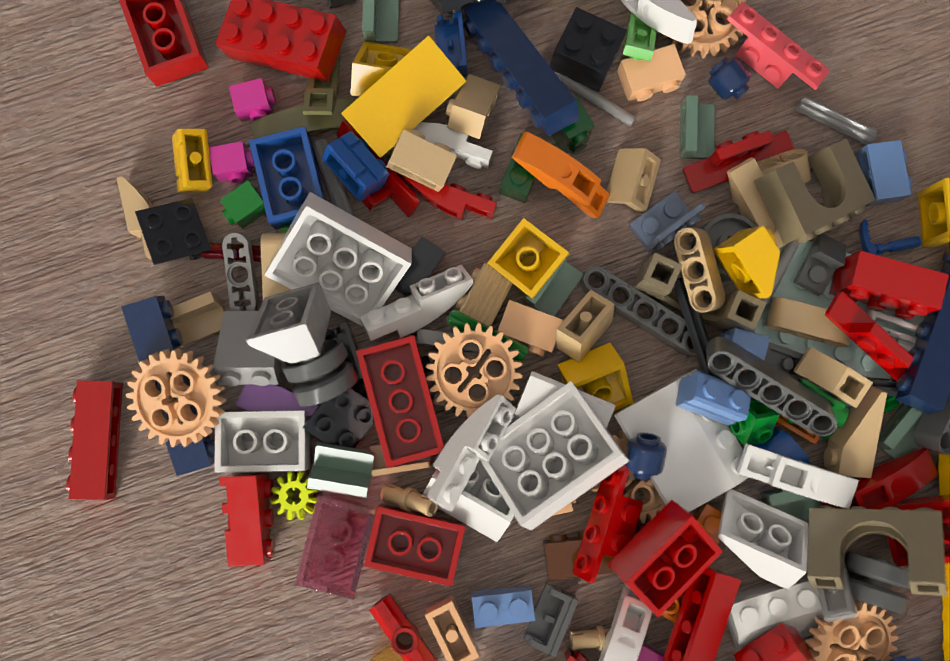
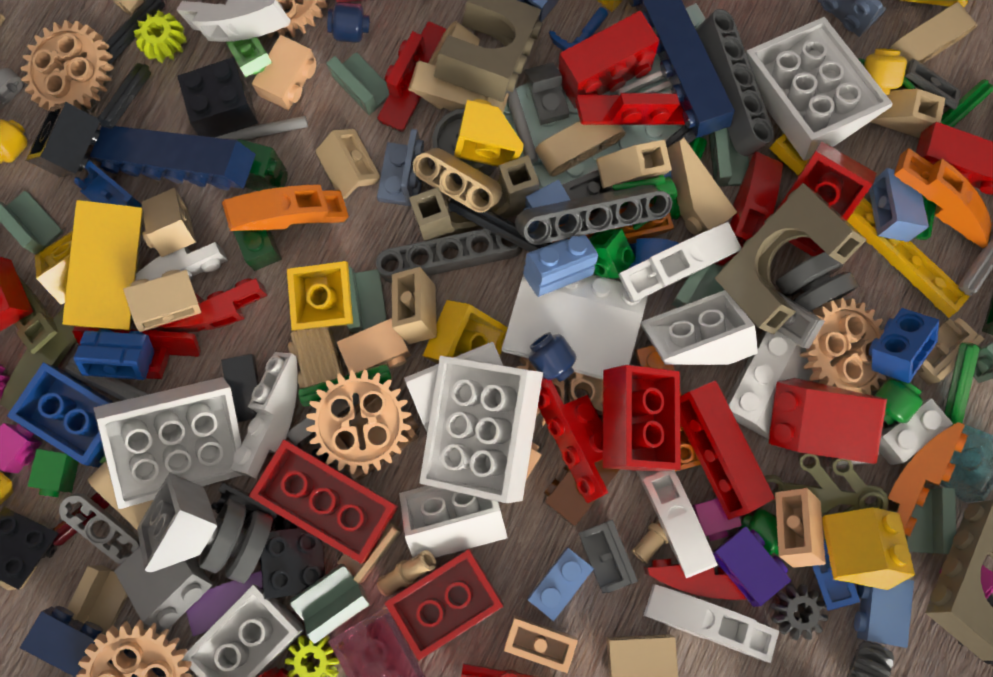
camera: 35 degrees left, 5 degrees down
(473, 440) = (408, 480): white slope -> none

